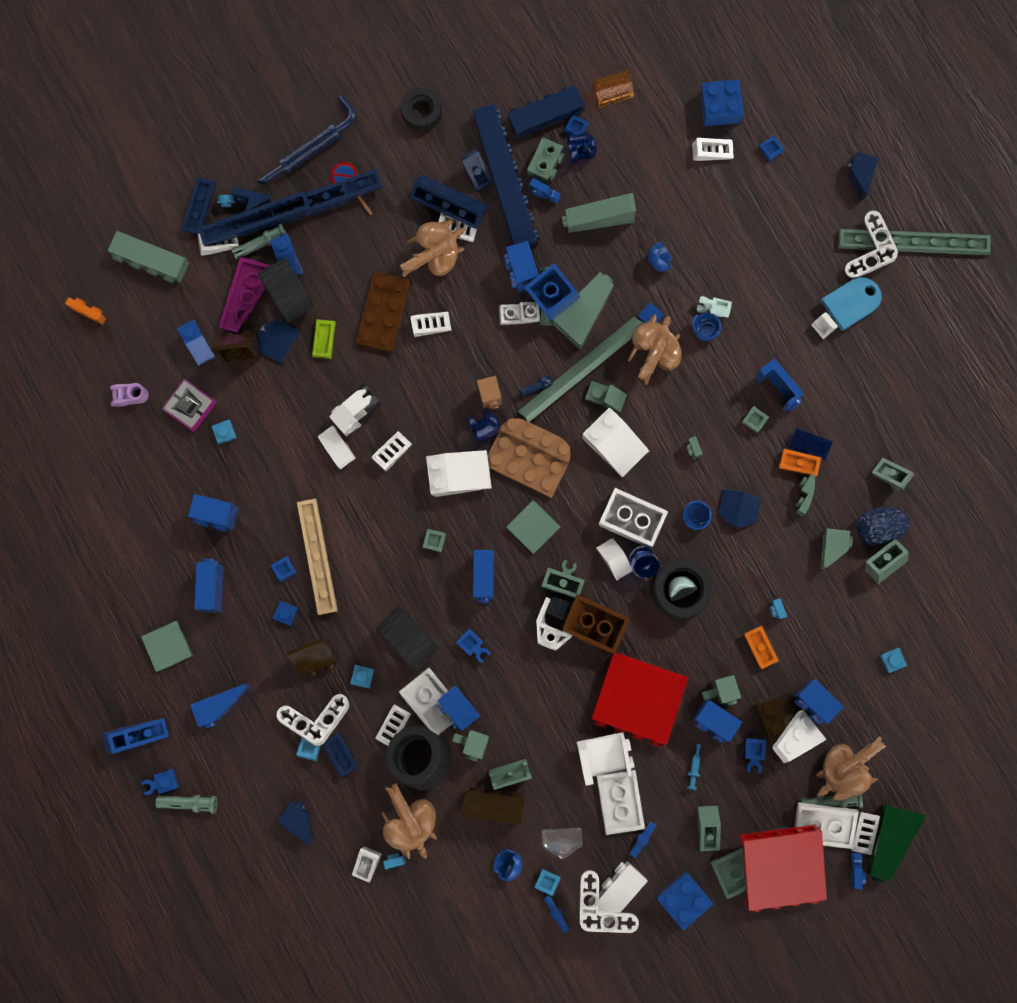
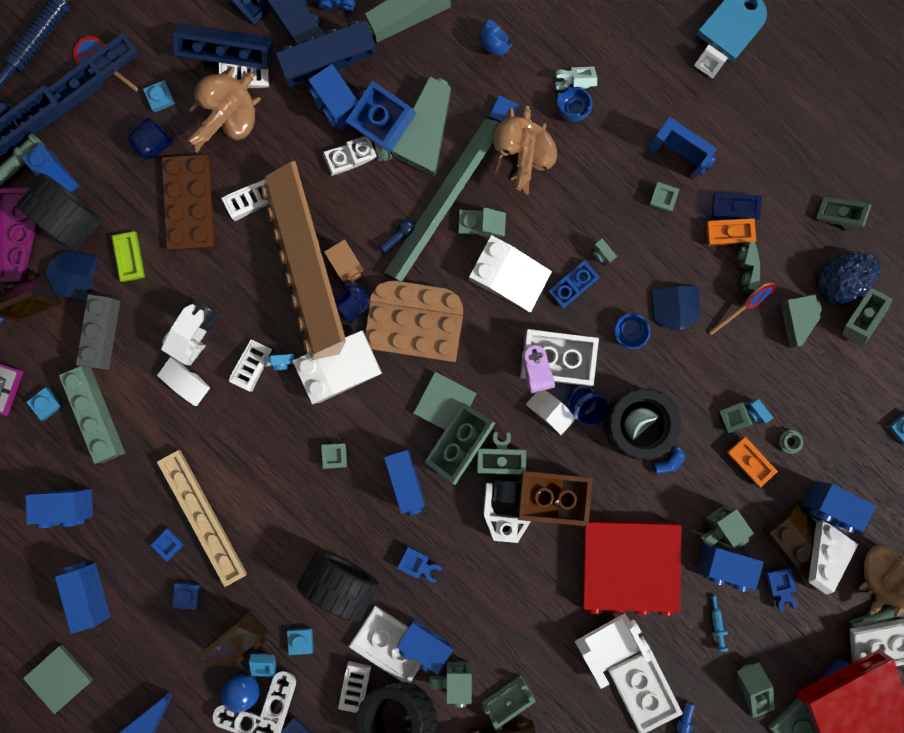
camera: 30 degrees left, 5 degrees up
(259, 451) = (92, 414): none -> sand green brick
(283, 389) = (98, 332): none -> dark grey brick
(303, 700) = (239, 693): none -> blue hair
(328, 684) = (262, 665): none -> dark azure plate
(369, 255) = (149, 139): none -> clear blue helmet
(386, 224) = (159, 96): none -> dark azure plate
(415, 454) = (279, 362): none -> dark azure plate
(459, 384) = (303, 263): none -> medium nougat slope
(535, 230) = (335, 47): none -> dark blue brick
(535, 559) = (459, 443): none -> sand green slope
(612, 523) = (538, 374): none -> lavender piece
(663, 465) = (574, 284): none -> blue slope
(697, 630) = (673, 463): none -> blue arm
(759, 608) = (736, 417): none -> sand green plate
(801, 521) = (754, 300): none -> piece
(801, 637) = (797, 441): none -> sand green plate

